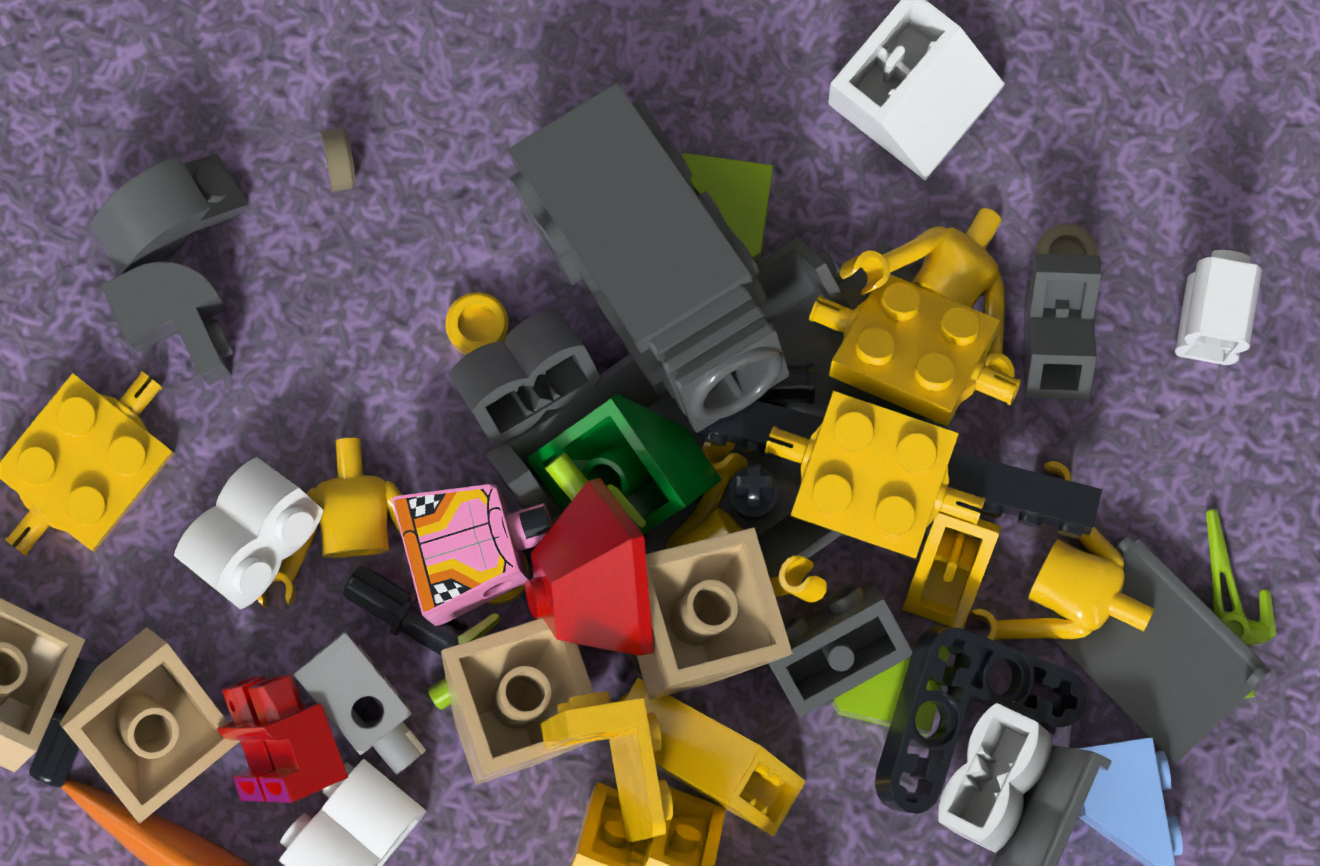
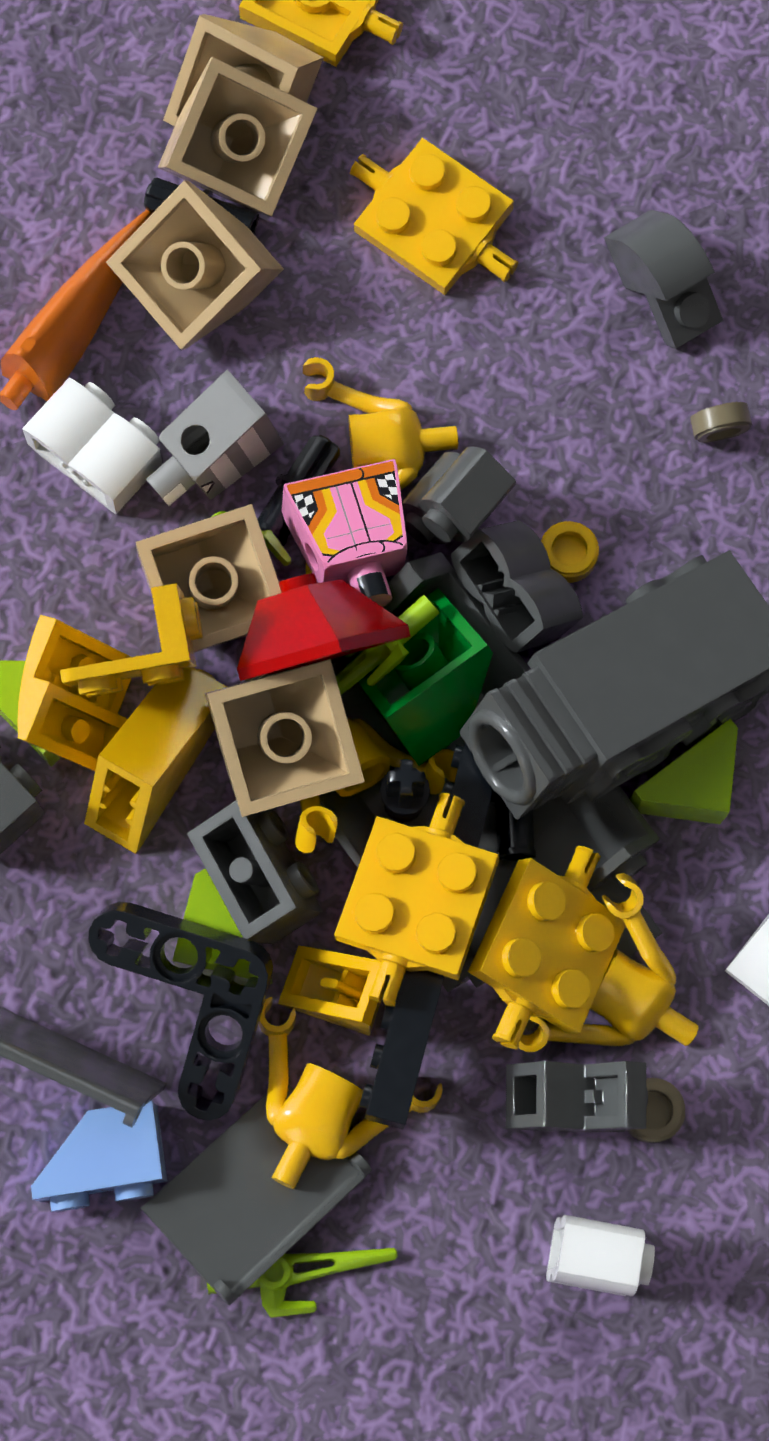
camera: 80 degrees right, 5 degrees down
(169, 300) = (578, 287): dark grey brick -> none
(248, 532) = (361, 343): white brick -> none
(282, 740) = (174, 377): red hips -> none
(430, 436) = (456, 496): none -> dark grey brick
(1004, 762) = (113, 1019): white brick -> none

